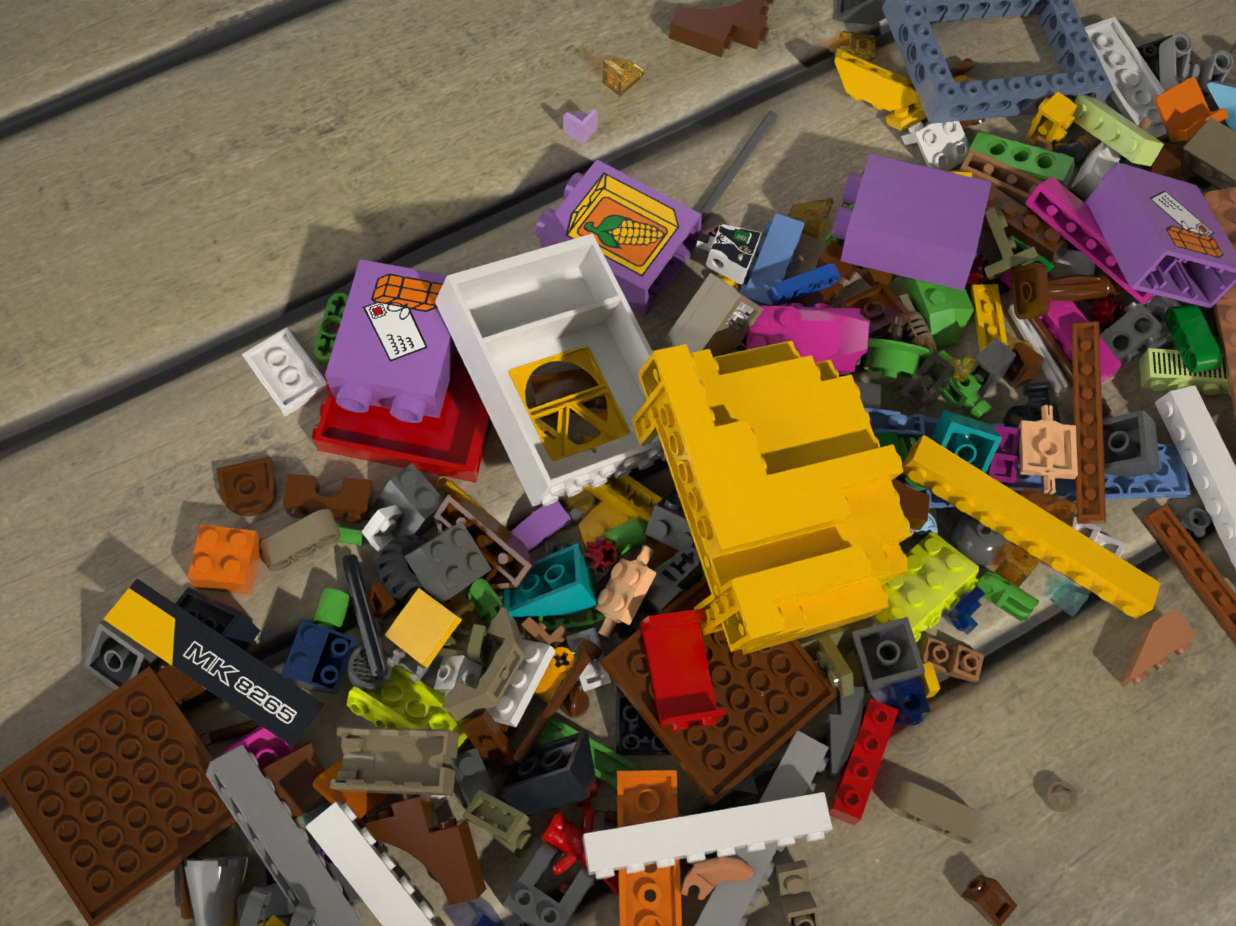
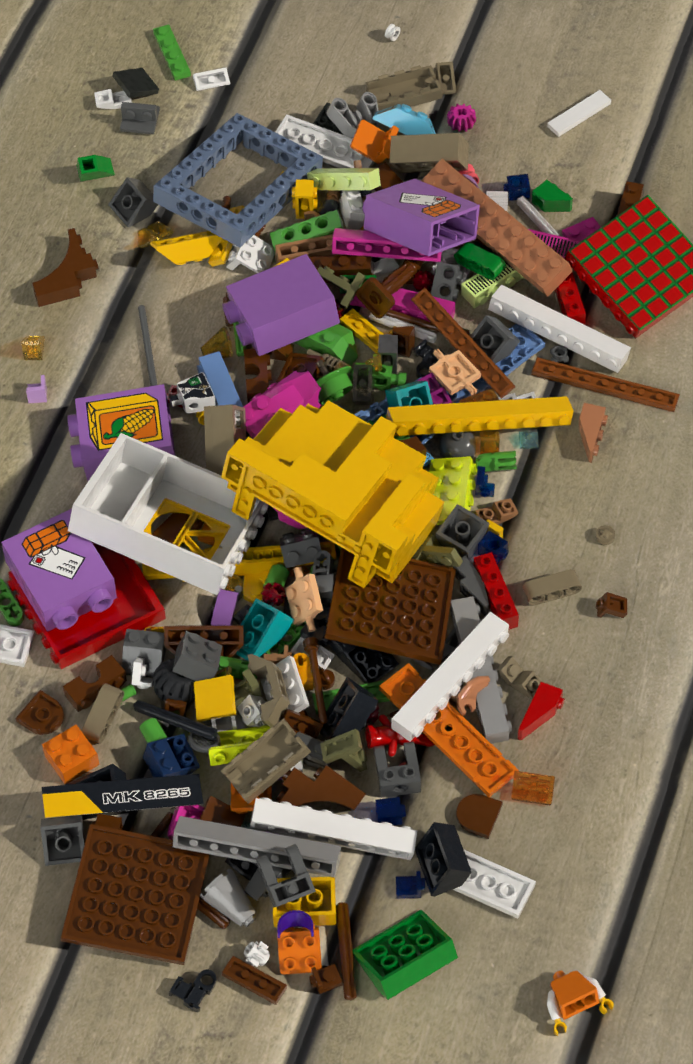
camera: 35 degrees left, 10 degrees down
(680, 670) = (367, 609): red panel -> none
(803, 284) = (251, 382): blue beam -> none

